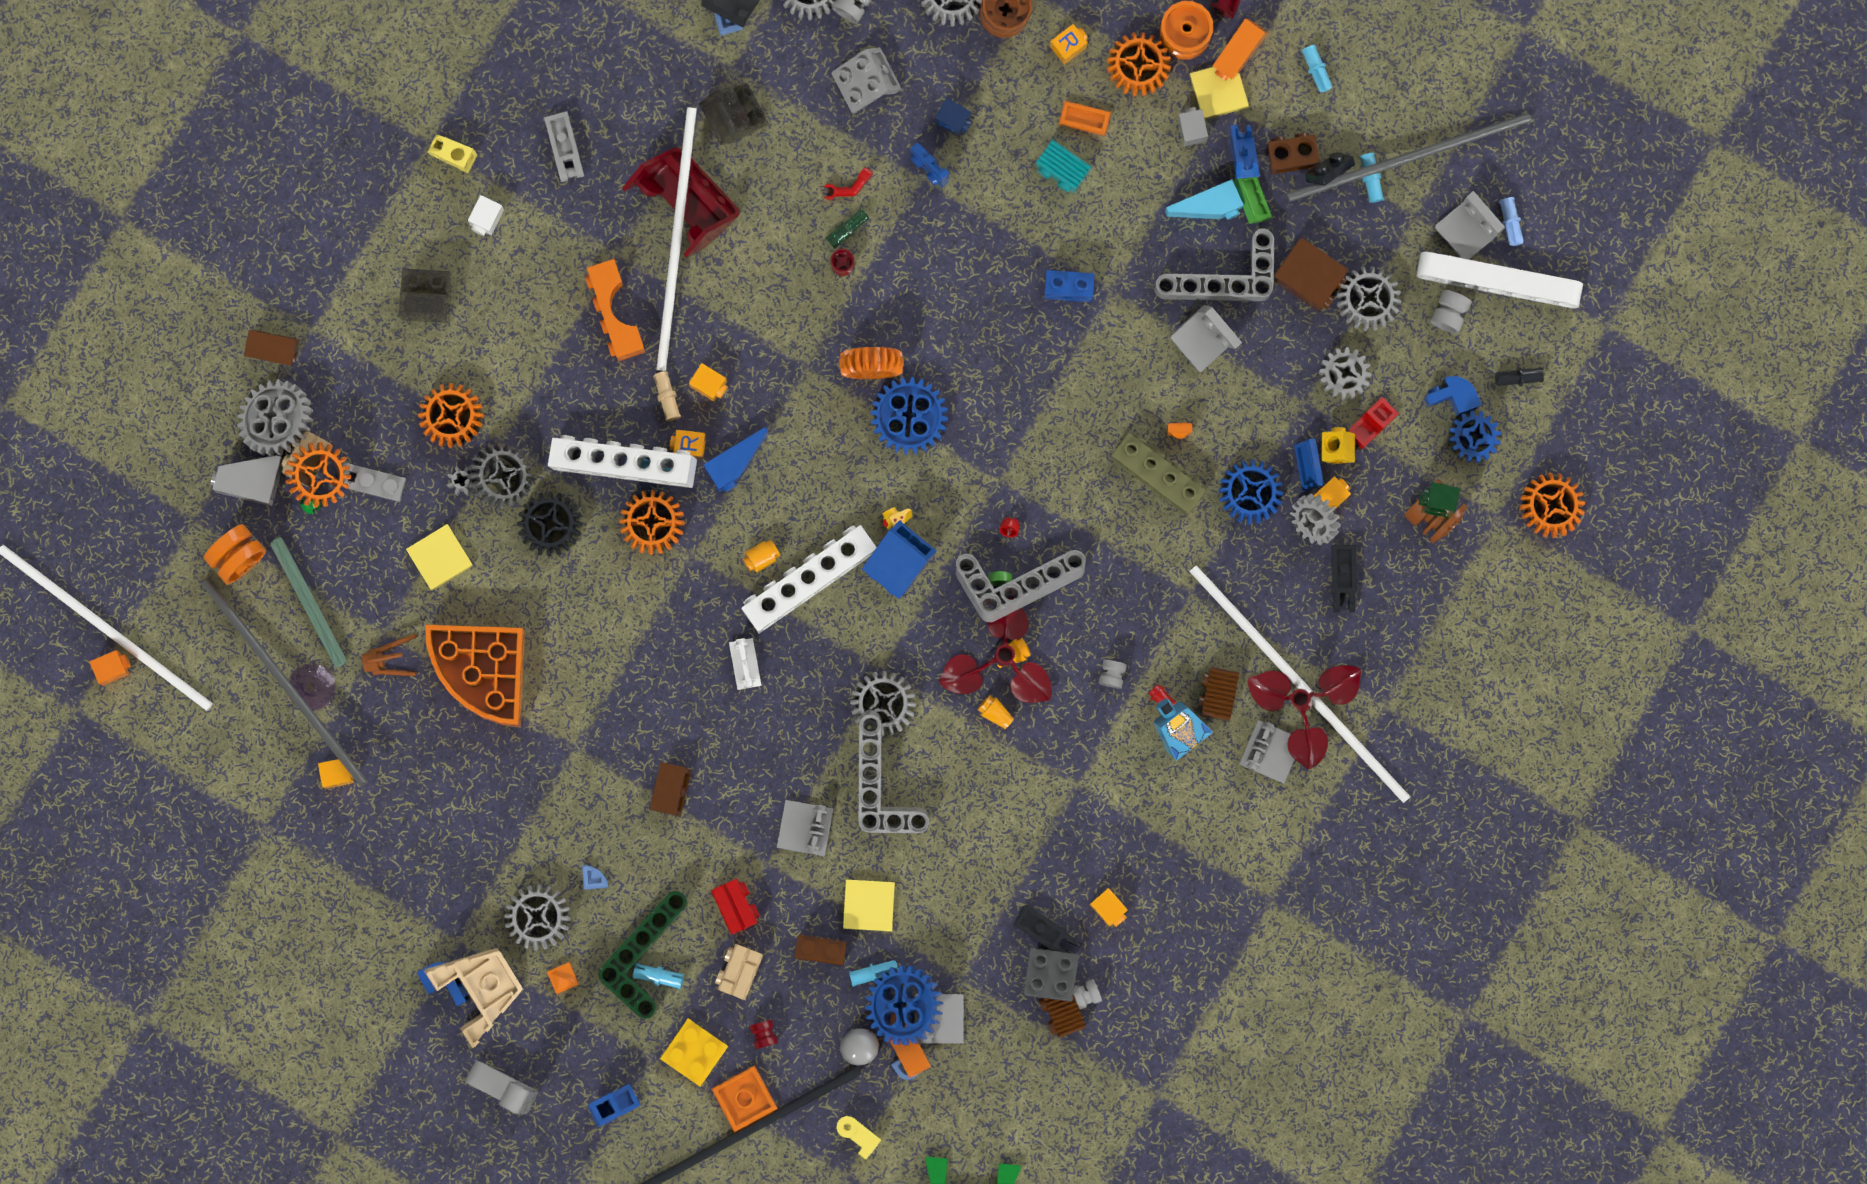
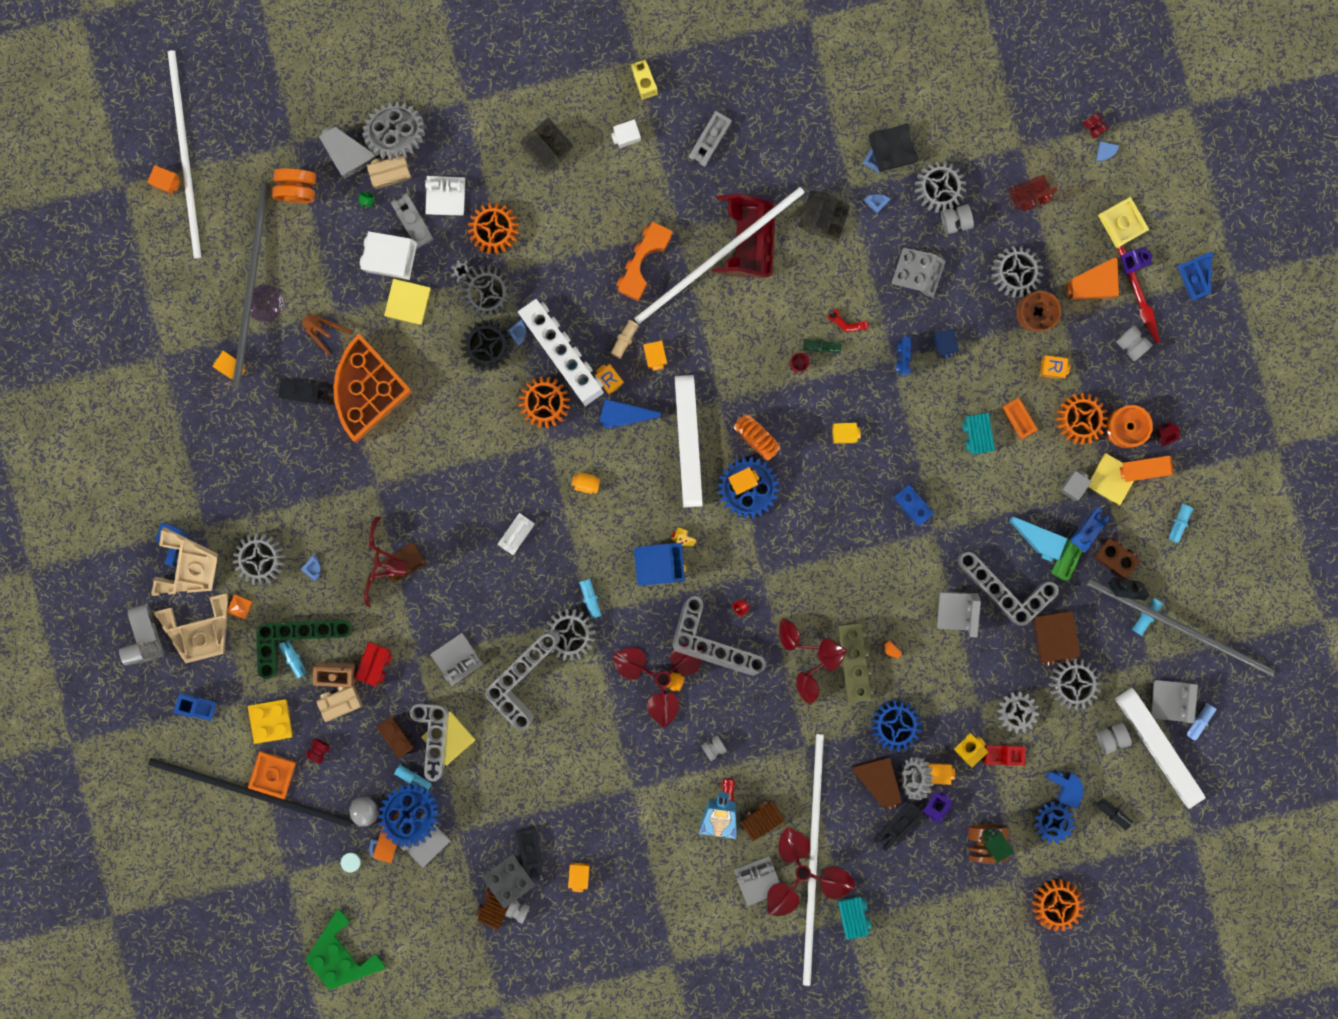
camera: 45 degrees right, 5 degrees up
(271, 347) = (432, 88): reddish brown hinge -> none
(308, 602) = (310, 253): sand green axle -> none
(322, 464) = (398, 181): orange gear -> none
(378, 430) = (445, 195): none -> white hinge
(381, 532) = (388, 255): none -> white brick
(427, 730) = (303, 392): none -> black hinge
(555, 1042) = (200, 638): none -> tan wing
(565, 485) = (518, 332): none -> medium blue tile
(665, 798) = (393, 566): none -> dark red plant
(709, 949) = (334, 674): none -> medium nougat brick
(763, 619) = (549, 518): white brick -> none
(766, 56) = (877, 201): none -> medium blue tile
(814, 428) = (688, 441): none -> white beam
(851, 1128) = (314, 859): light yellow leg -> none
(859, 919) = (440, 743): none -> light grey beam
(869, 654) = (590, 598): none -> medium azure pin
(894, 1104) = (350, 862): none -> light aqua tile
(898, 411) = (744, 480): none -> light orange brick
(945, 282) = (845, 433): none -> yellow brick
(995, 712) = (627, 702): light orange cone -> none
(999, 578) = (706, 631): bright green tile -> none
(1130, 487) = (830, 655): none -> dark red plant
(1287, 555) = (880, 781): none -> reddish brown slope
(1309, 465) = (944, 743): blue tile -> none
(1354, 519) = (938, 799): none -> dark purple brick
(1386, 696) = (853, 917): none -> teal brick

